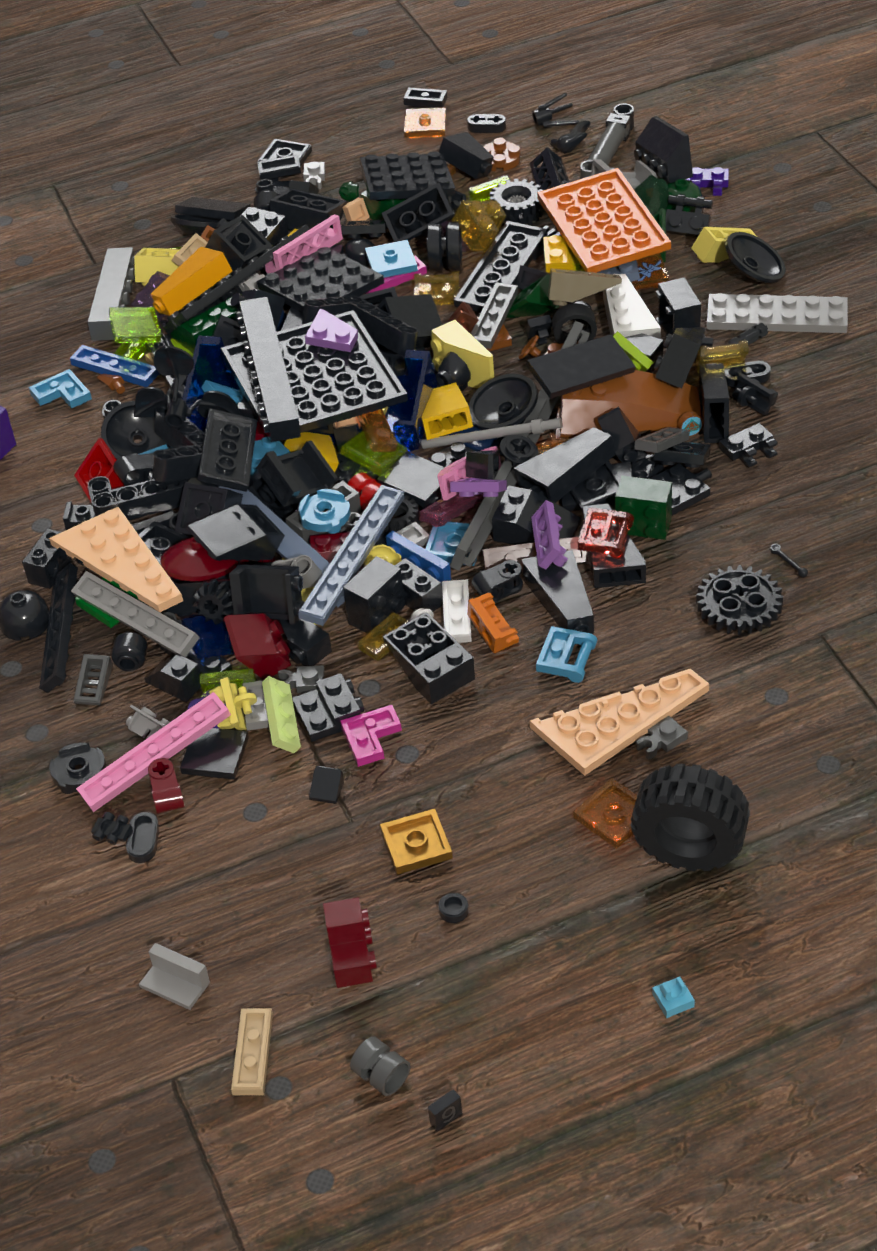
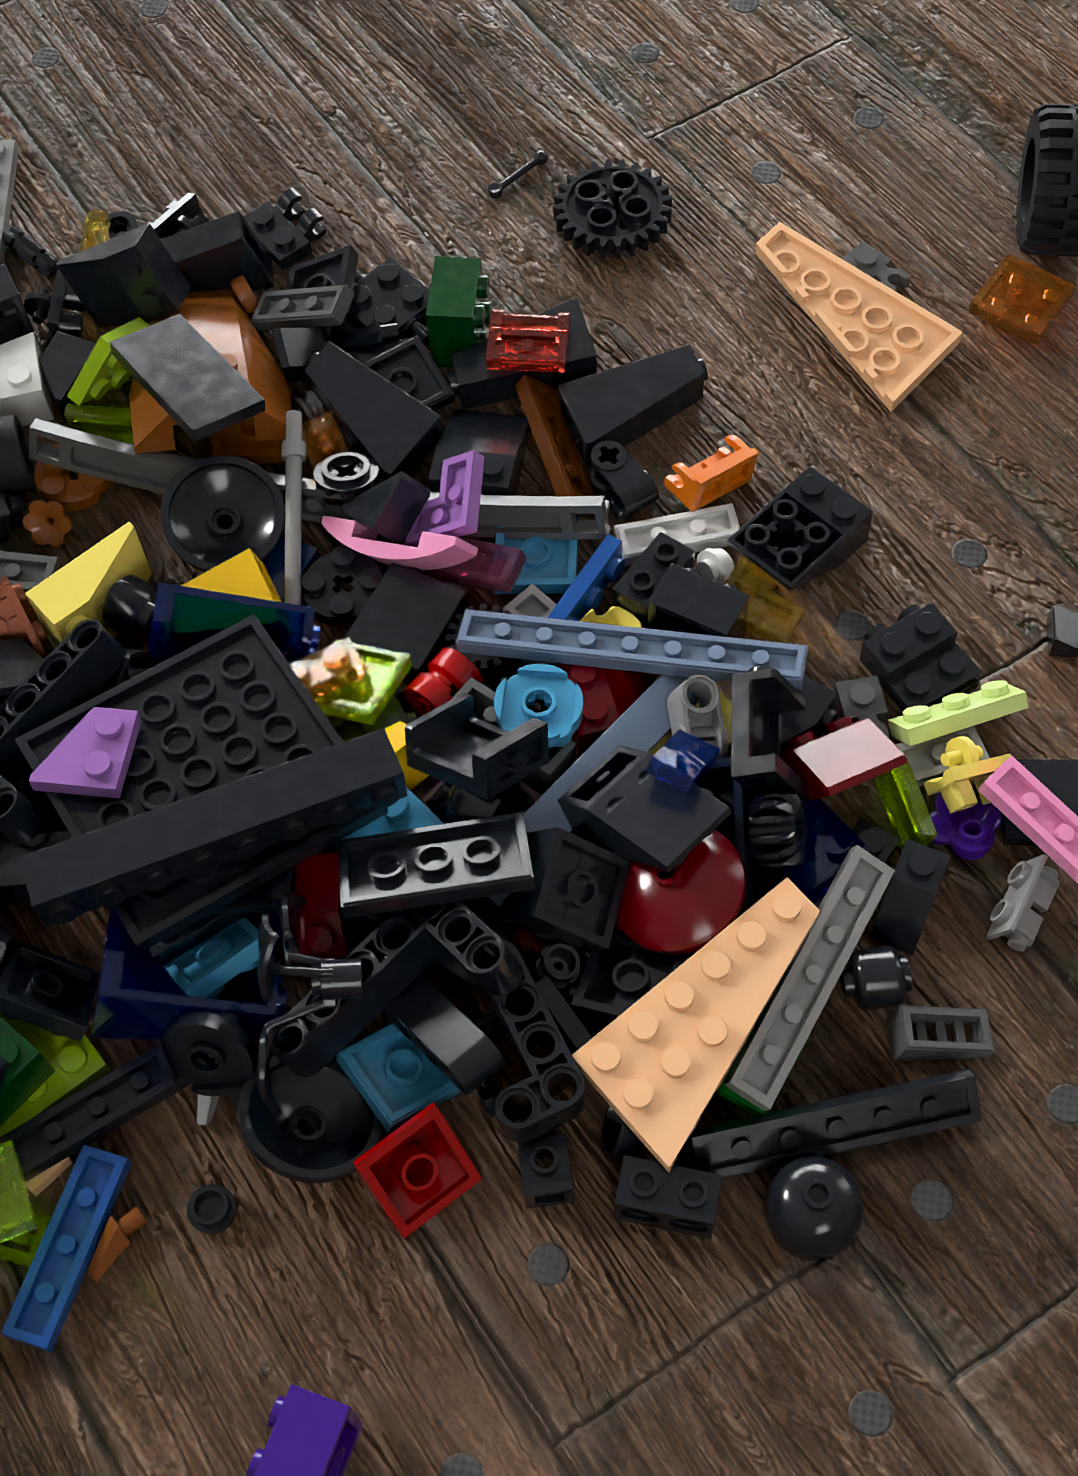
camera: 100 degrees left, 15 degrees up
(61, 385) = (131, 1340): dark azure plate -> none
(253, 543) = (682, 760): none -> clear blue tile
(365, 729) = (960, 602): dark pink plate -> none
(547, 536) = (549, 404): medium lavender plate -> none
(558, 649) = (746, 387): dark azure plate -> none

